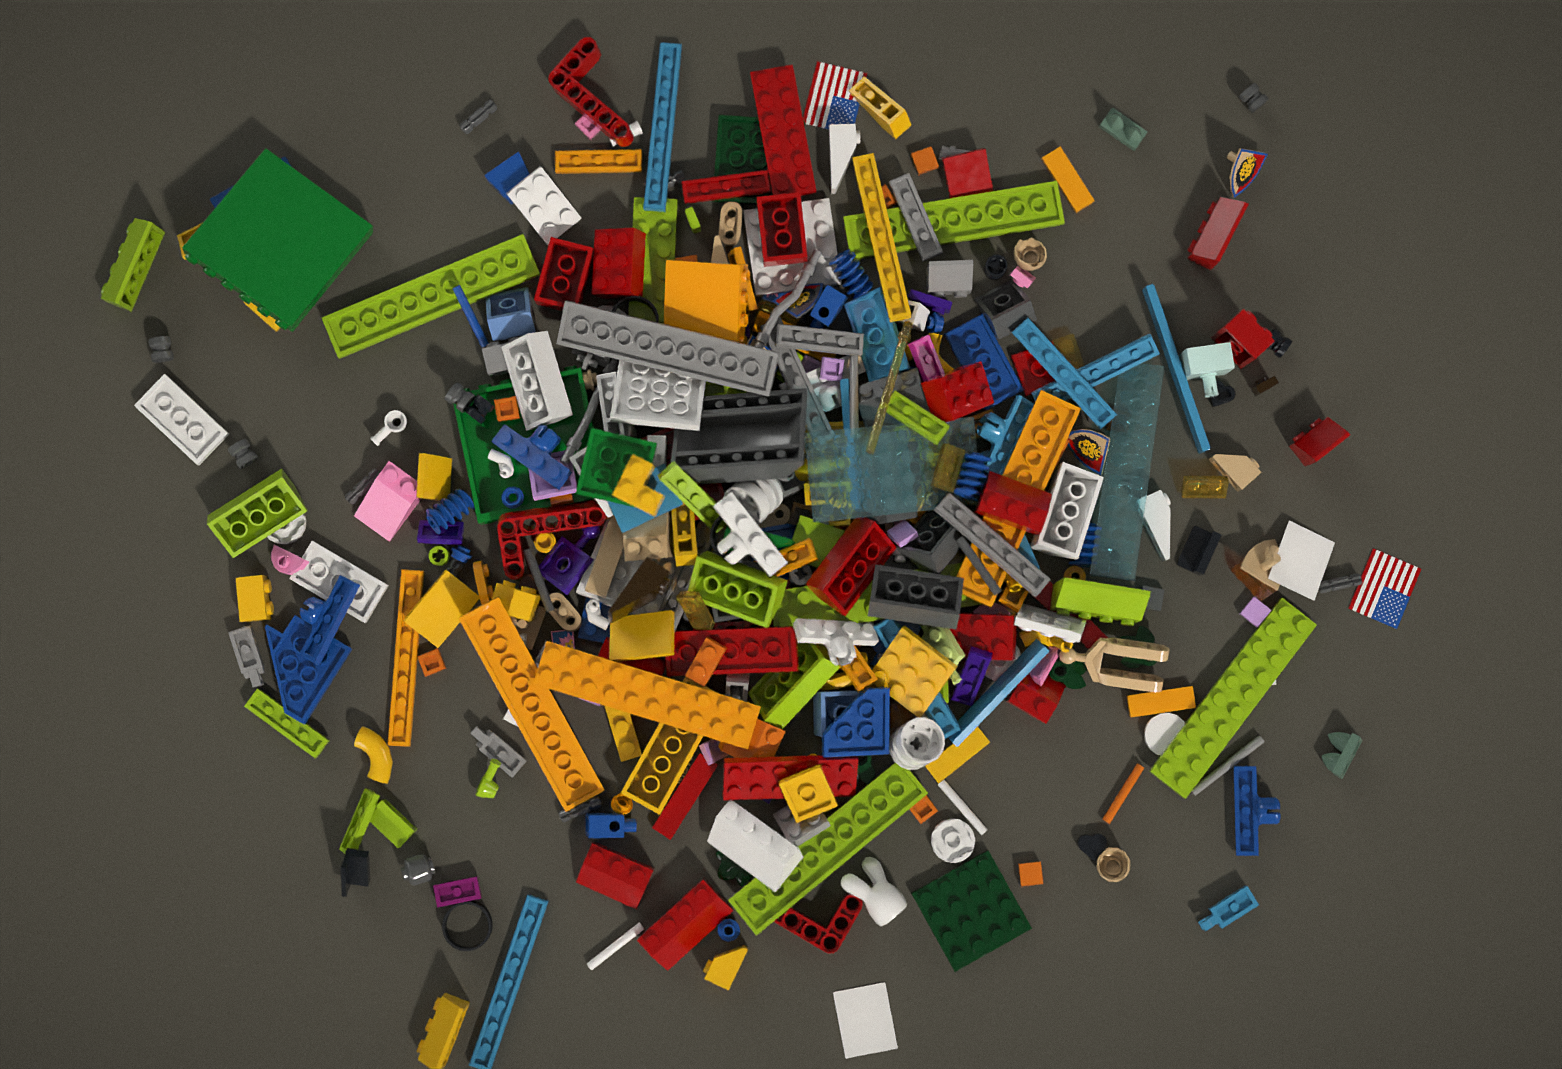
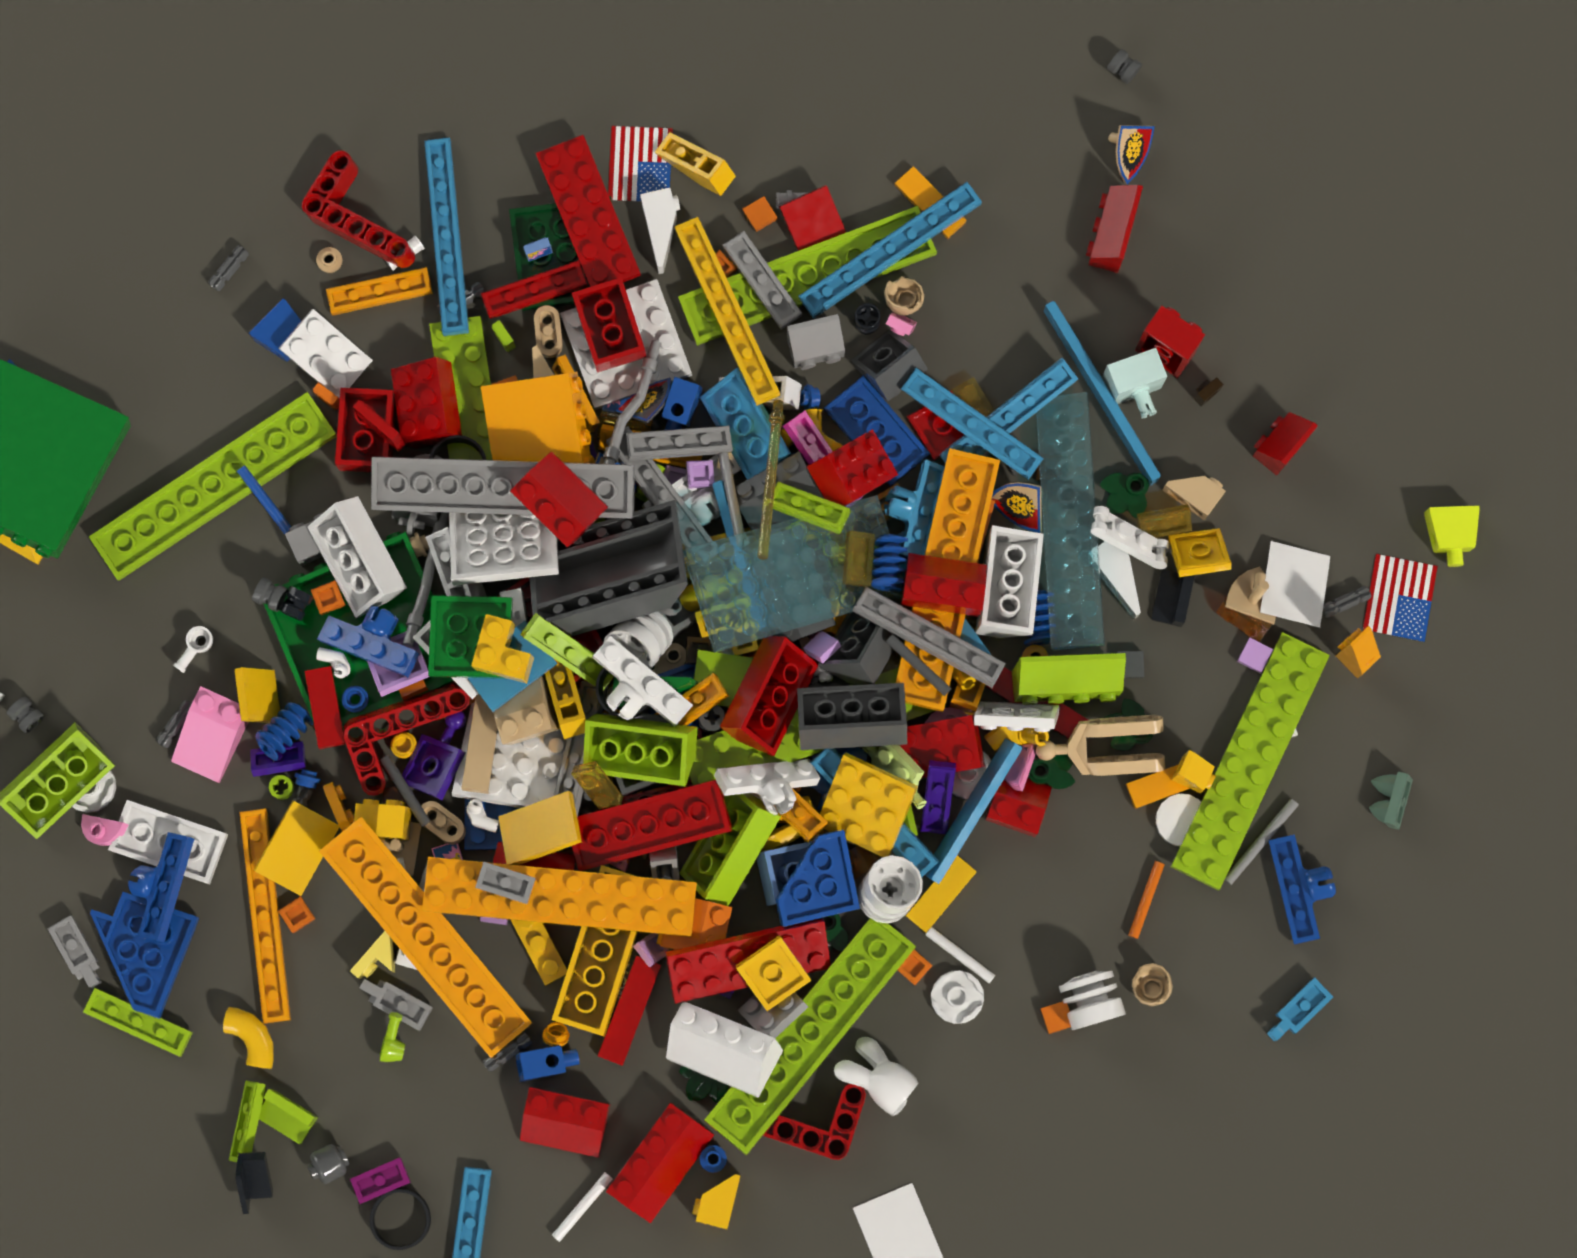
camera: 10 degrees left, 5 degrees down
(254, 598) = (71, 882): yellow brick -> none
(486, 499) = (325, 707): none -> red tile
(494, 706) = (381, 950): none -> light yellow slope
(510, 314) = (310, 487): medium blue slope -> none
(538, 240) = (326, 396): none -> orange tile
(565, 132) = (334, 265): none -> tan plate
(576, 276) = (379, 425): none -> red tile
(586, 127) = (358, 255): bright pink tile -> none
(605, 676) = (505, 883): none -> light grey plate
(643, 588) = (528, 774): dark brown slope -> none
(705, 661) = (621, 843): orange plate -> none
(712, 368) = (559, 499): none -> red slope
(735, 153) = (537, 249): none -> medium blue tile
(852, 273) = (700, 359): blue piece -> none
(936, 304) = (805, 374): dark purple plate -> none
(971, 910) = (996, 1076): dark green plate -> none
(1026, 213) = (890, 250): none -> dark azure tile
(1062, 867) = (1092, 999): none -> white wheel
(1092, 845) = (1123, 967): black tile -> none
(1123, 129) = (982, 132): sand green tile -> none
(1173, 495) = (1129, 538): none -> white plate
(1174, 457) = (1122, 496): none -> dark green plate
(1185, 699) = (1194, 772): none -> yellow slope
(1226, 394) = (1165, 410): black tile -> none
(1228, 518) = (1199, 552): none -> yellow tile
(1282, 344) = (1218, 340): black wheel -> none
(1341, 628) = (1359, 651): none -> light orange slope
(1441, 543) = (1452, 531): none -> neon yellow torso

